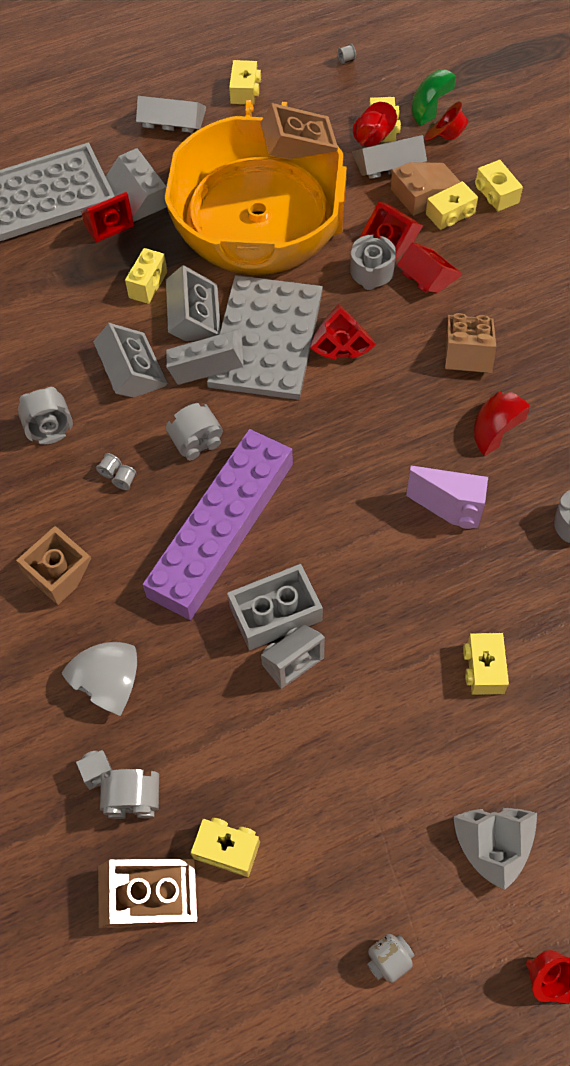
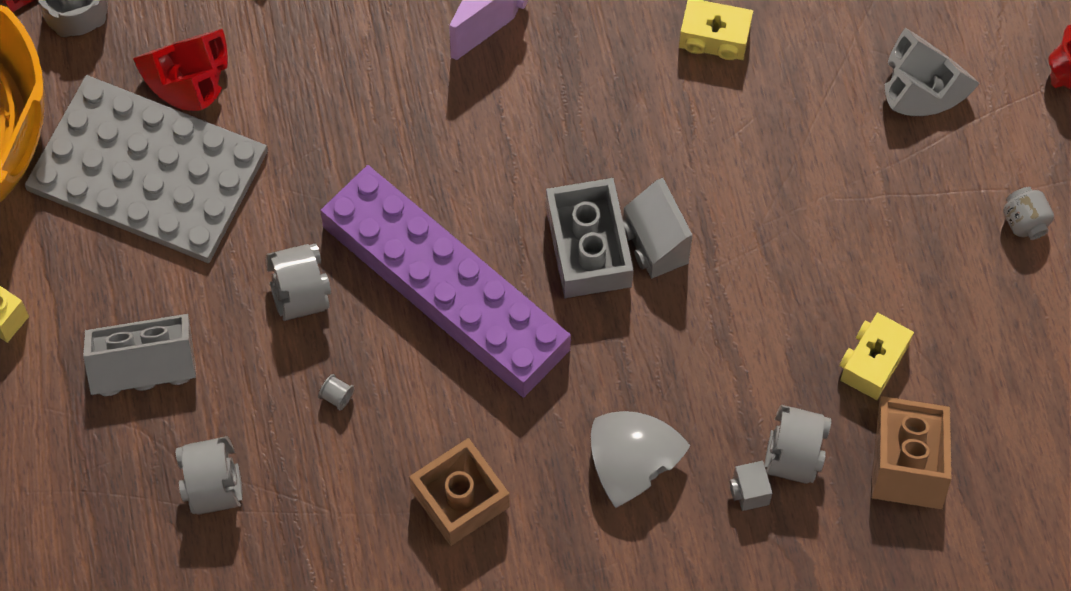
camera: 80 degrees left, 5 degrees up
(108, 465) = (310, 409): light grey axle -> none
(192, 305) = (65, 253): light grey slope -> none
(206, 357) = (168, 243): light grey slope -> none

